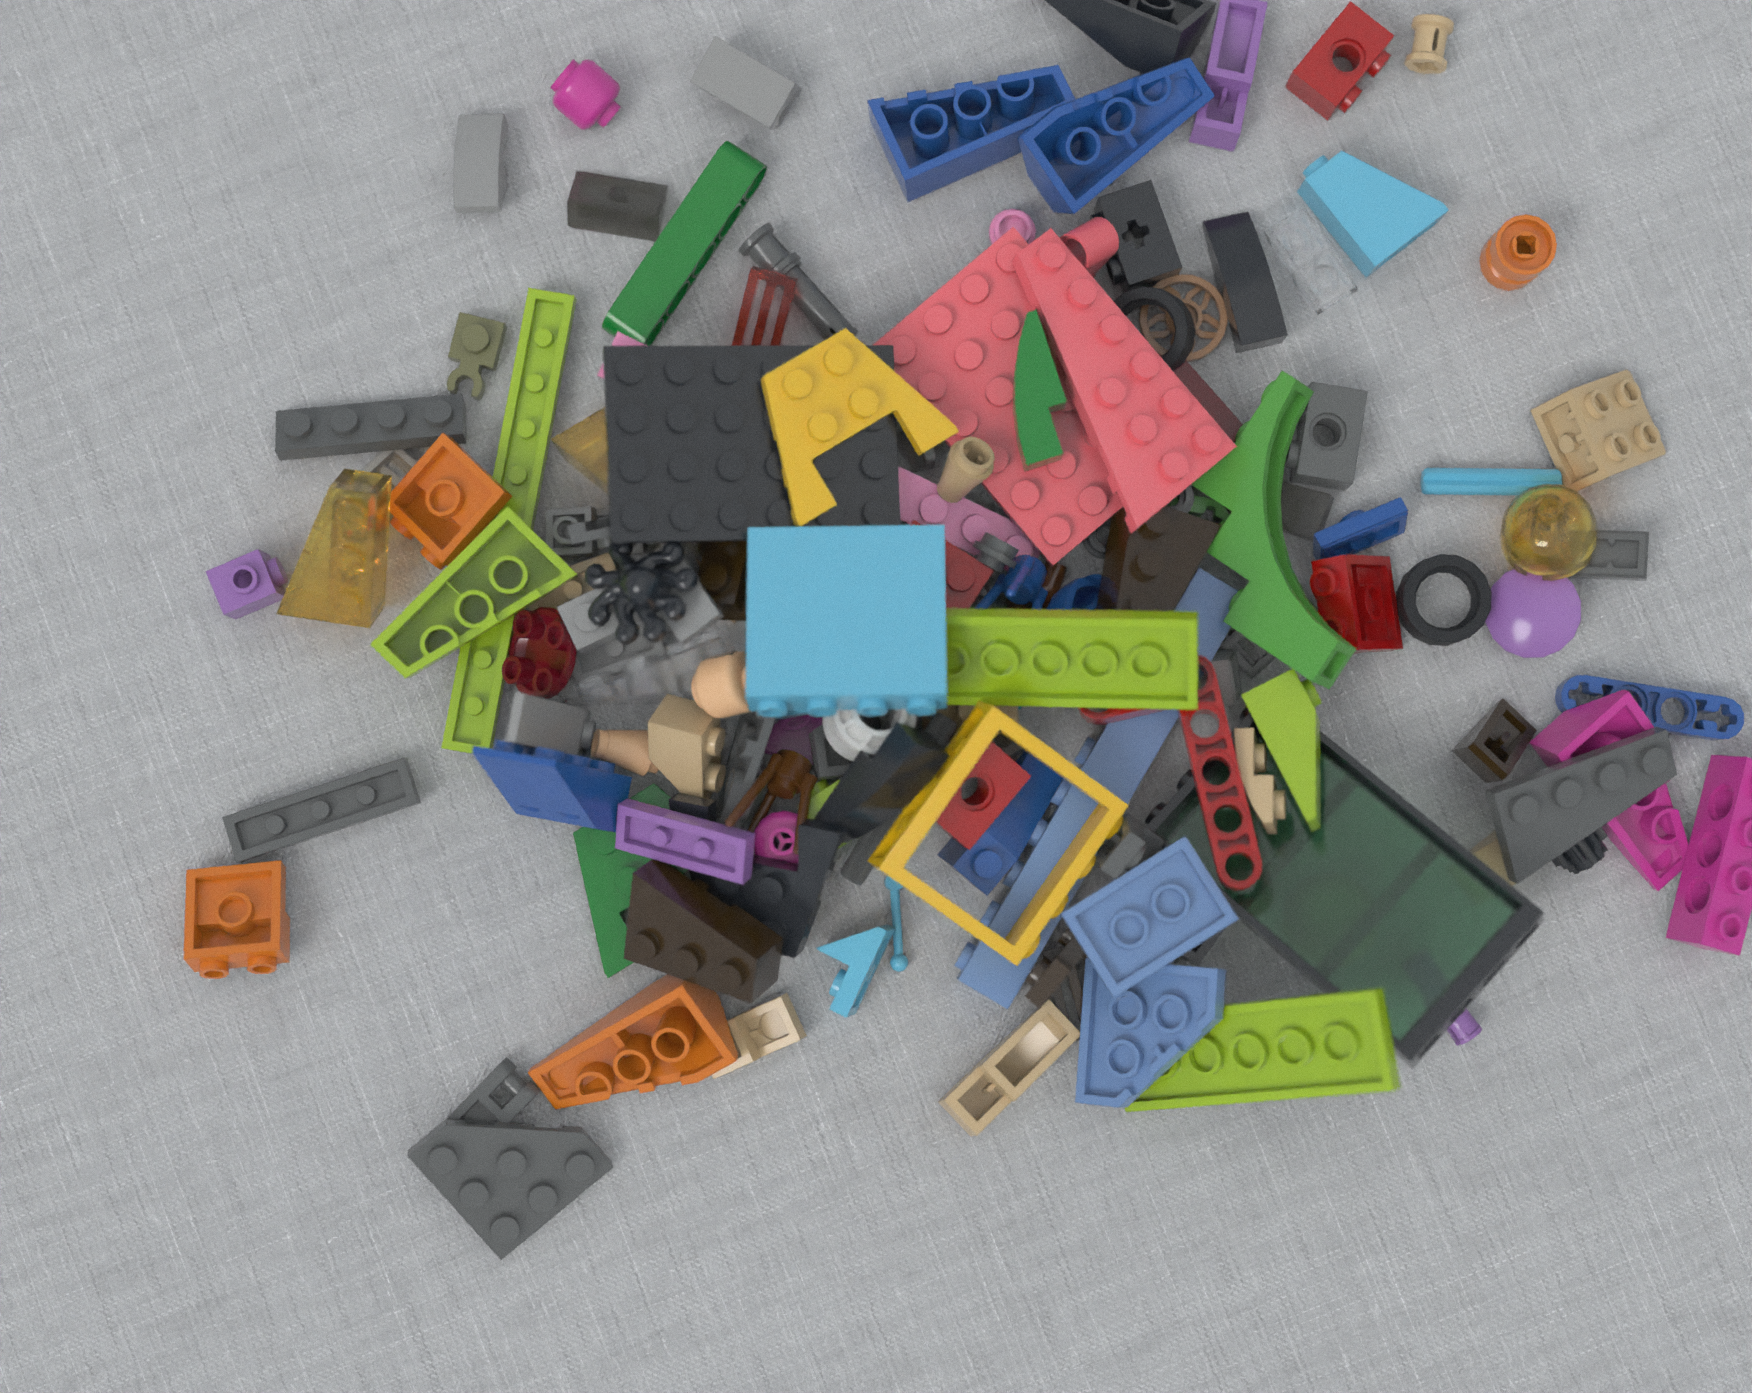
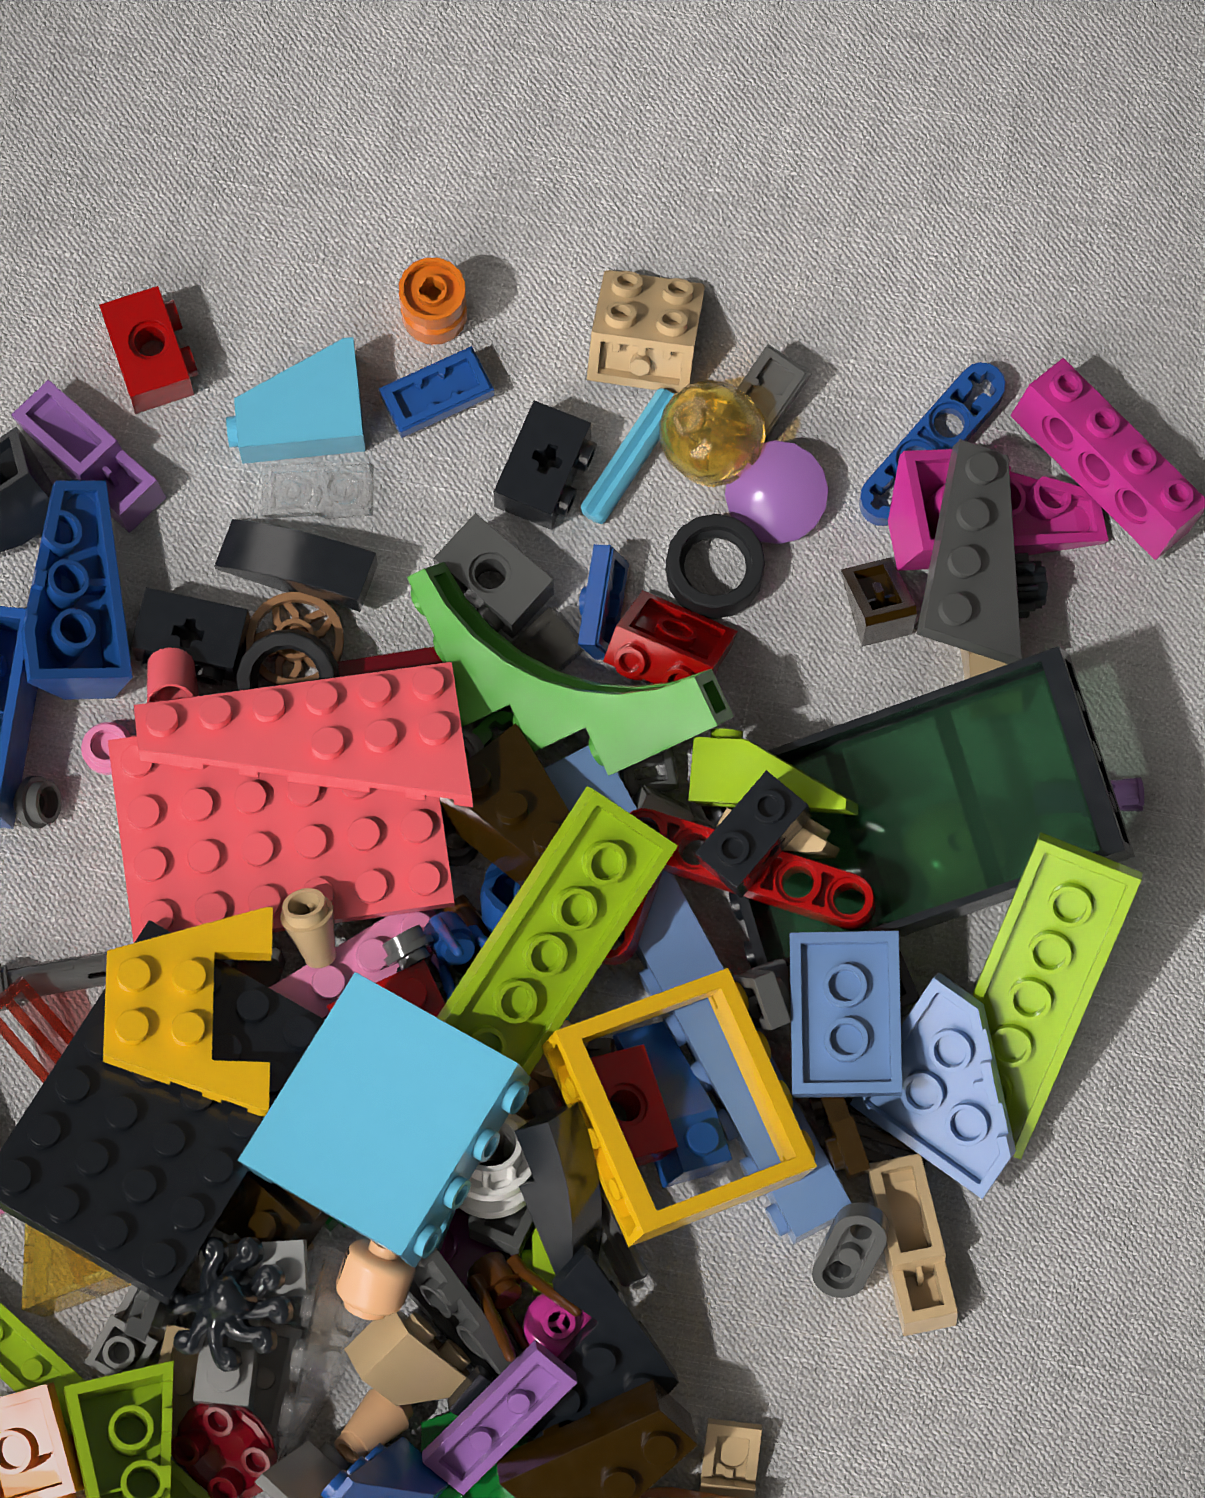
camera: 60 degrees left, 10 degrees down
(862, 955) = (714, 1316): medium azure slope -> none
(898, 961) = (664, 1247): medium azure hinge -> none
(937, 206) = (37, 802): none -> dark grey plate
(974, 1026) = (853, 1246): none -> dark grey plate
(1035, 396) = (284, 816): green slope -> none
(1242, 763) = (753, 834): none -> black brick
(1429, 44) = (184, 259): tan bush -> none
(1447, 301) = (436, 392): none -> blue plate
(1462, 405) = (544, 437): none -> black brick

